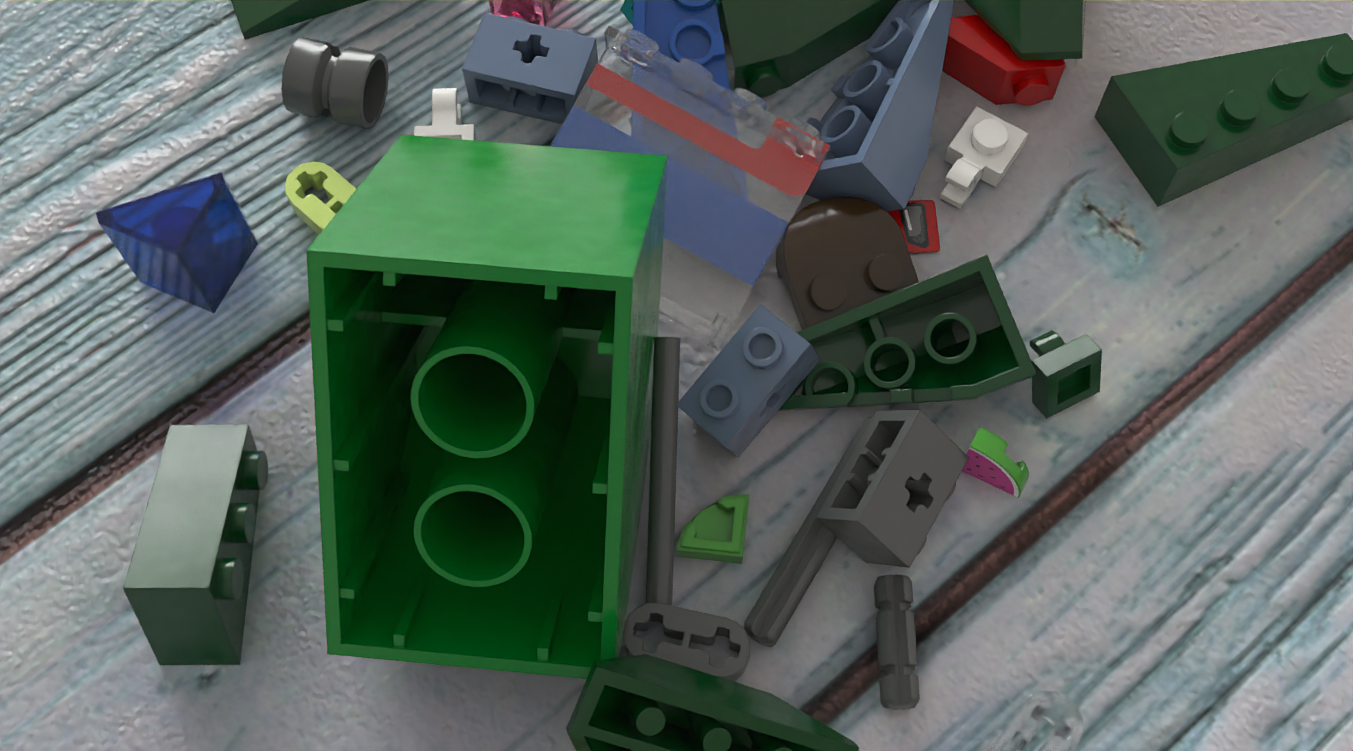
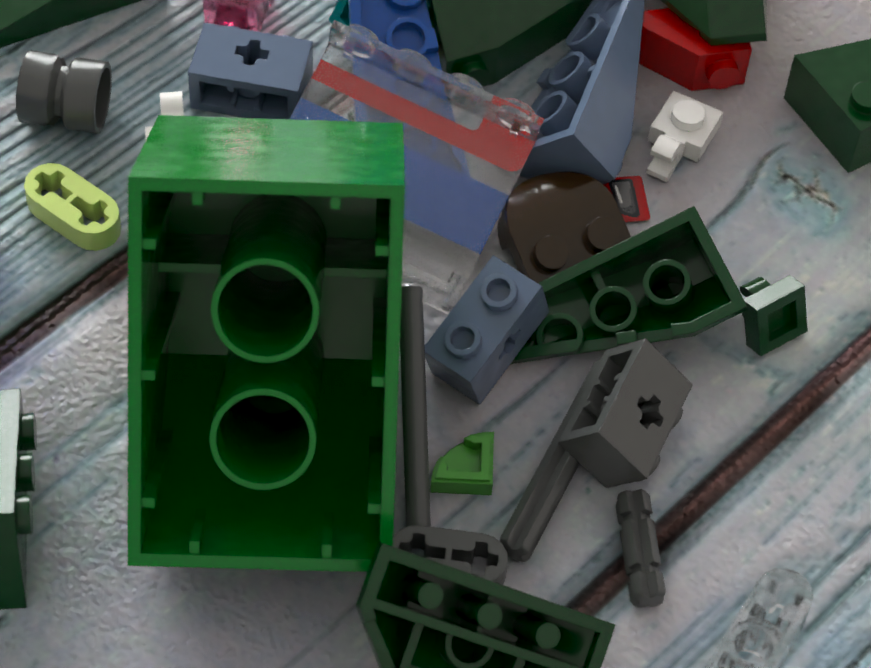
camera: 10 degrees left, 10 degrees down
(993, 466) = (715, 395): tile -> none

